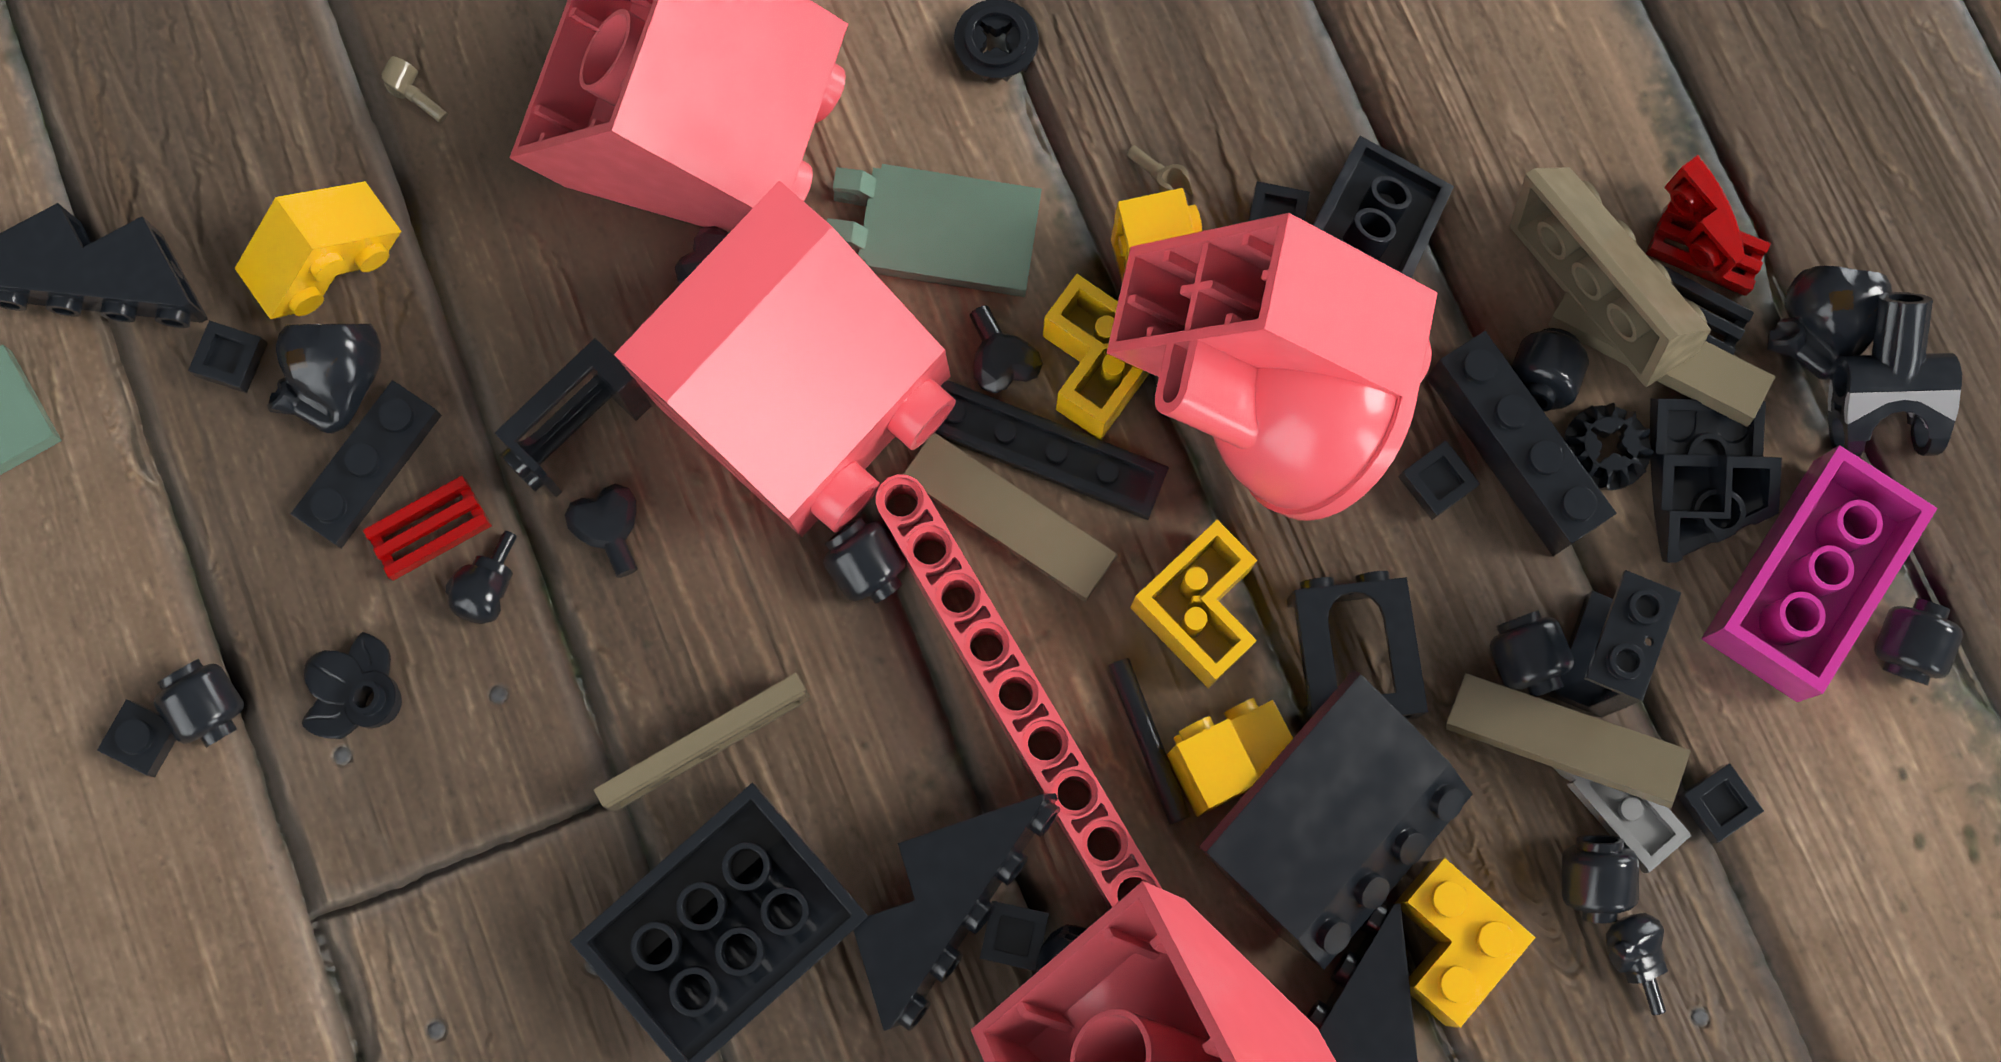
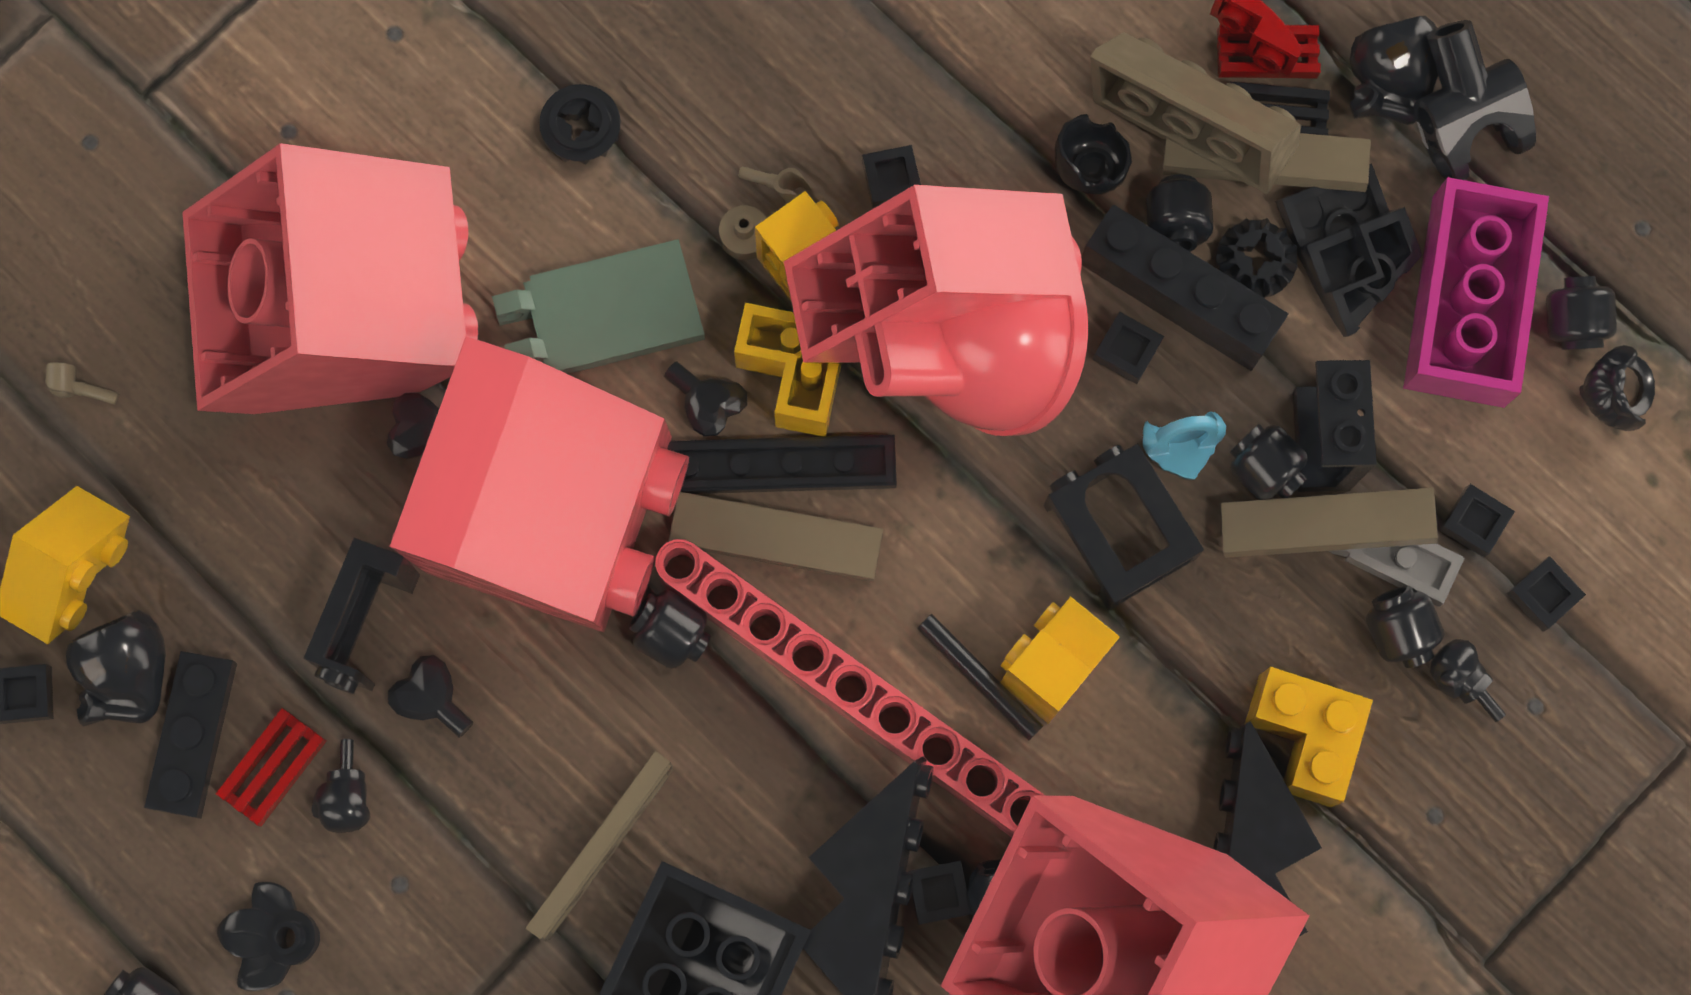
camera: 25 degrees left, 0 degrees up
(1101, 205) = (738, 231): none -> dark tan tile
(1185, 605) = (964, 552): yellow brick -> none
(1336, 820) = (1168, 675): black slope -> none
(1383, 206) = (979, 135): black slope -> none
(1454, 598) = (1184, 444): none -> medium azure piece
(1484, 276) = (1092, 156): none -> black hair
(1760, 908) = (1546, 594): none -> black plate
(1910, 731) = (1605, 386): none -> black piece

